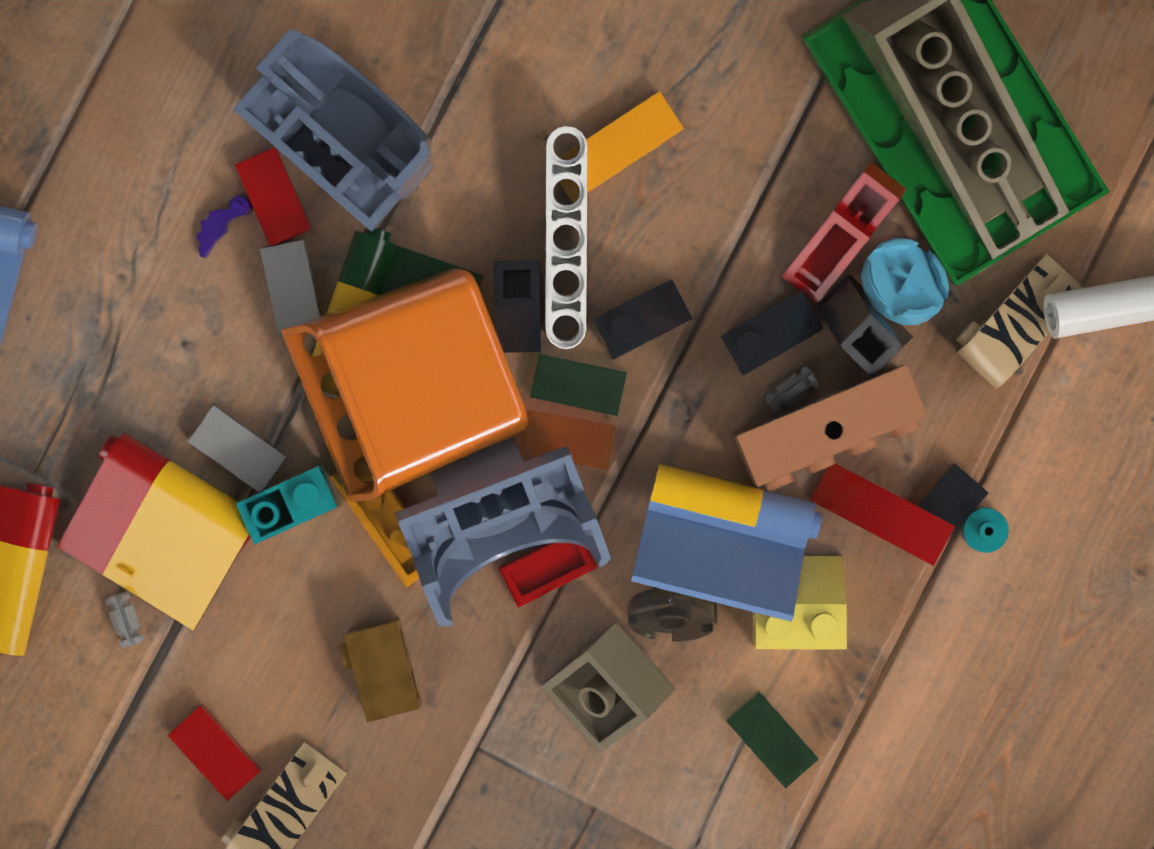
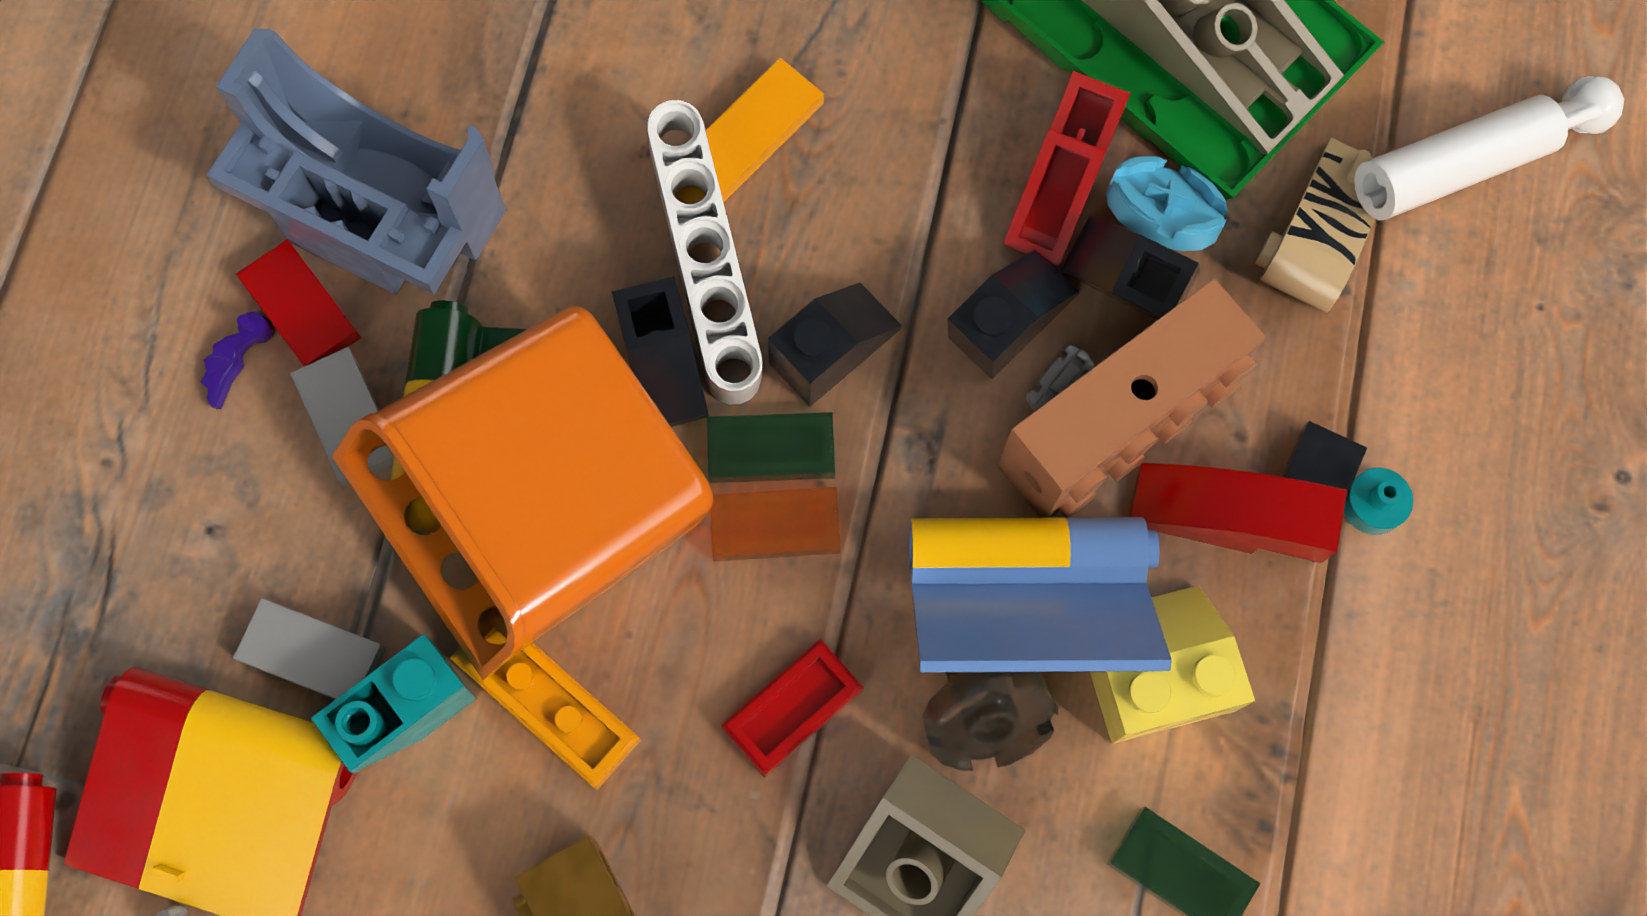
camera: 20 degrees left, 15 degrees down
(494, 508) = (701, 632): sand blue piece -> none

